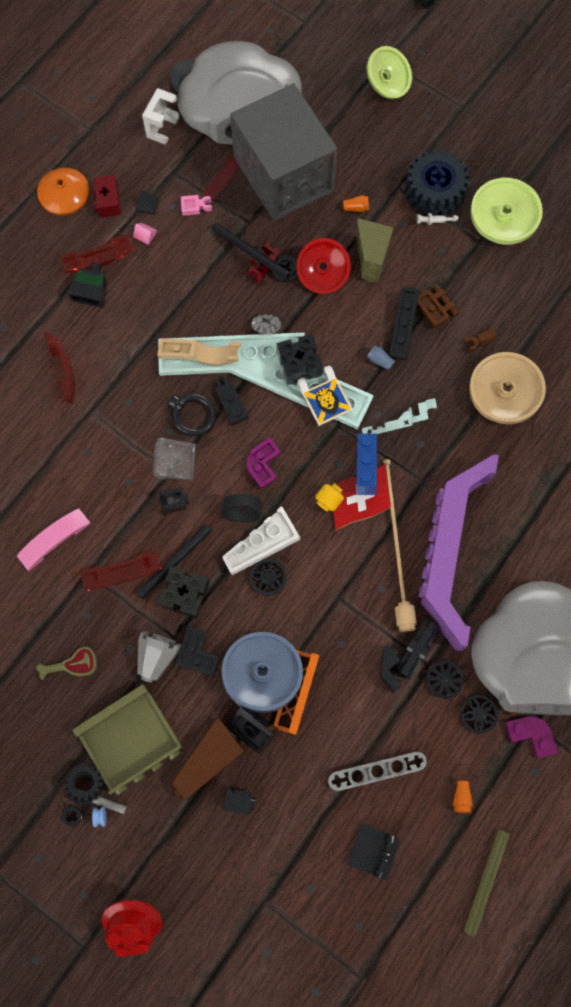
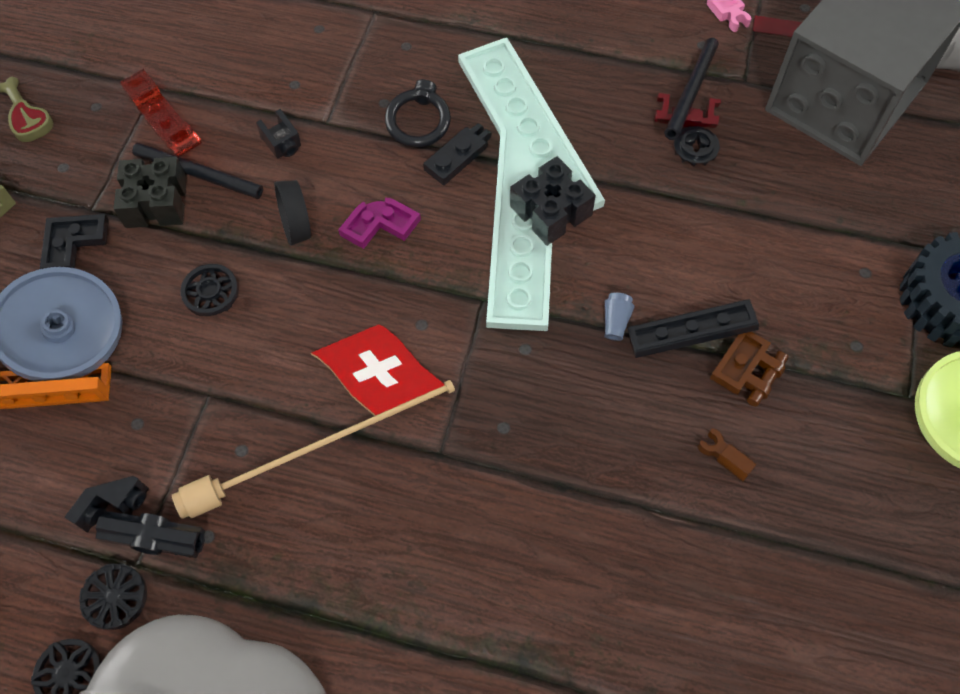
camera: 70 degrees right, 10 degrees down
(51, 537) = (190, 31): bright pink slope -> none
(155, 655) = (54, 188): light grey cone -> none
(174, 459) = (339, 114): clear slope -> none
(197, 351) = (505, 79): tan piece -> none
(266, 324) = (601, 157): light grey gear -> none
(268, 539) = (257, 263): white wing -> none
(325, 400) = (510, 263): flag -> none
(329, 497) = (355, 321): yellow head -> none
(336, 262) = (712, 171): red dish -> none
(357, 204) = (858, 200): orange cone -> none
(367, 464) = (427, 352): blue brick -> none
(372, 248) = (788, 237): olive slope -> none
(396, 424) = (538, 388): light aqua piece -> none
(434, 219) = (903, 315): white piece -> none
(444, 549) = (320, 514): medium lavender slope -> none
(507, 388) = (656, 523): tan dish -> none

